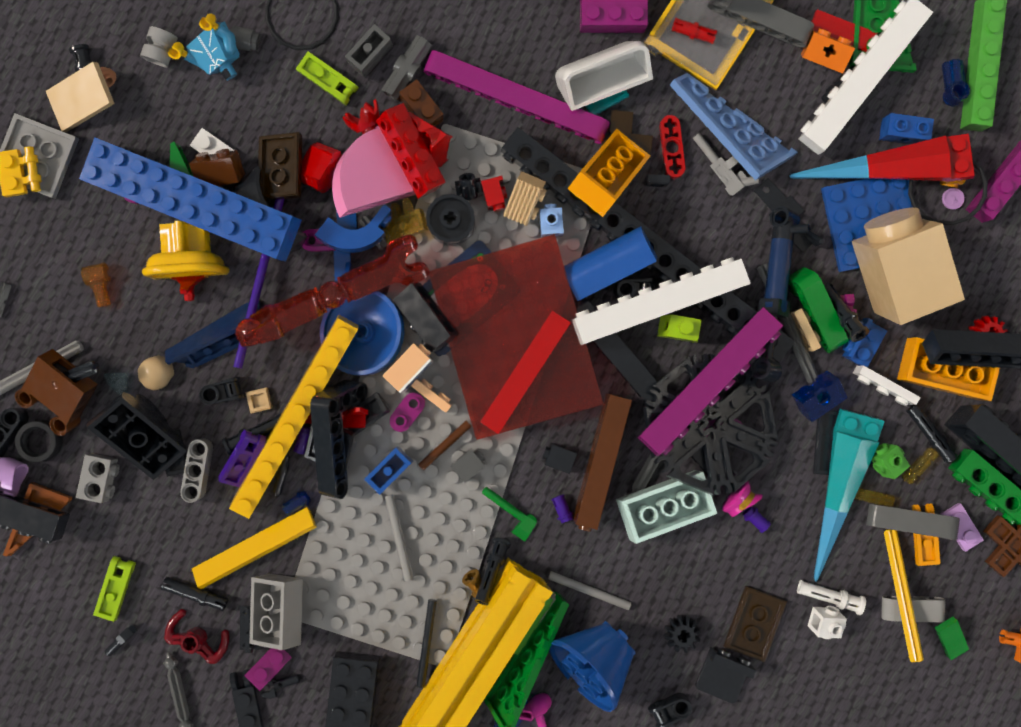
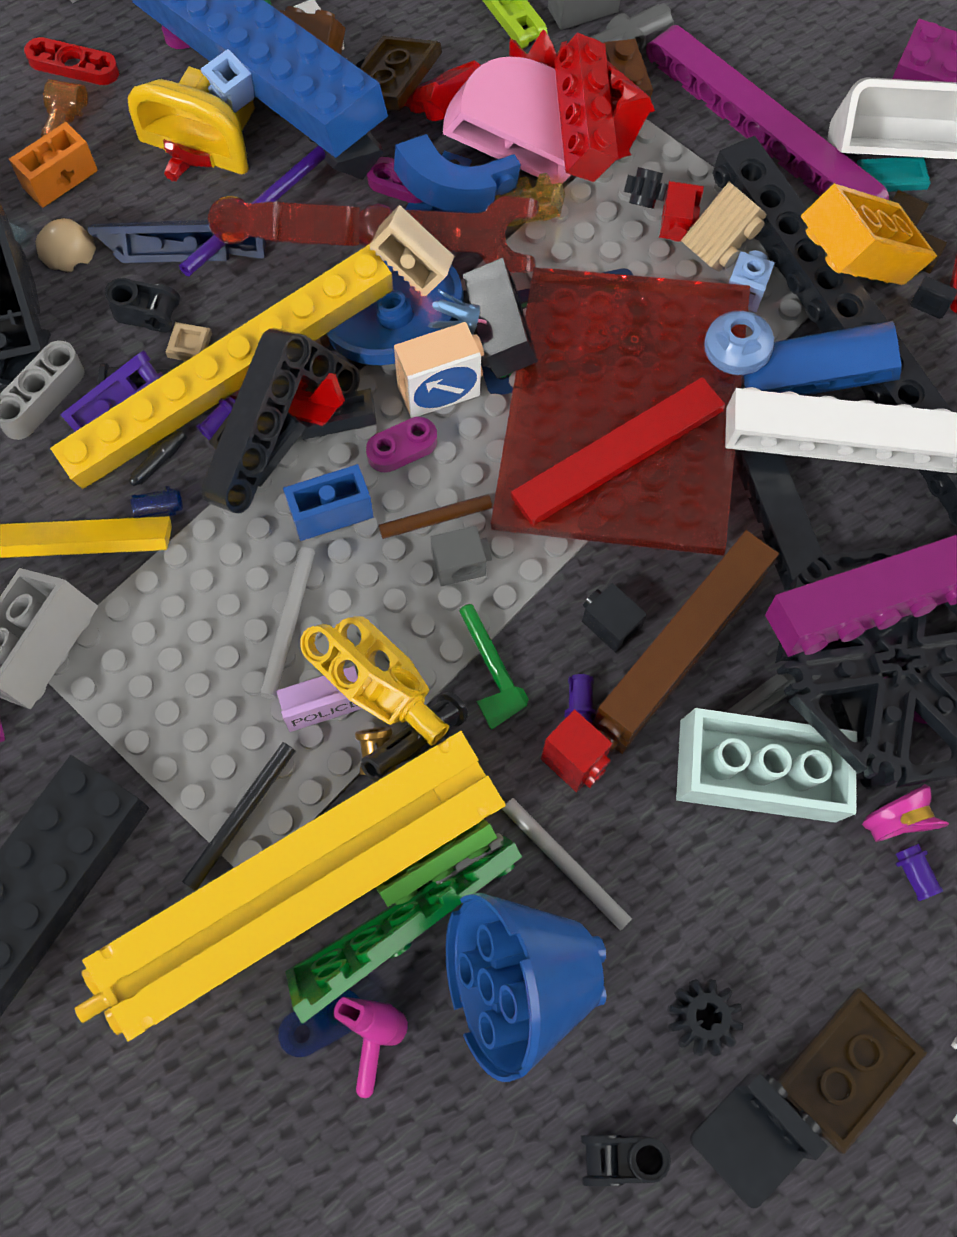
camera: 25 degrees right, 20 degrees down
(67, 252) = (63, 52): none -> red beam
(120, 328) = (53, 164): none -> orange brick
(195, 238) = (224, 83): none -> light blue brick
(362, 309) = (412, 251): none -> tan brick
(409, 334) = (462, 311): none -> flat silver piece
(425, 388) = (448, 421): light nougat plate -> none
(436, 570) = (315, 701): none -> lavender panel
(448, 207) = (600, 215): black wheel -> none
(471, 564) = (387, 694): none -> yellow piece
(563, 289) = (737, 354): none -> medium blue piece
(573, 542) = (577, 752): none -> red brick
(679, 328) = (897, 504): lime torso -> none

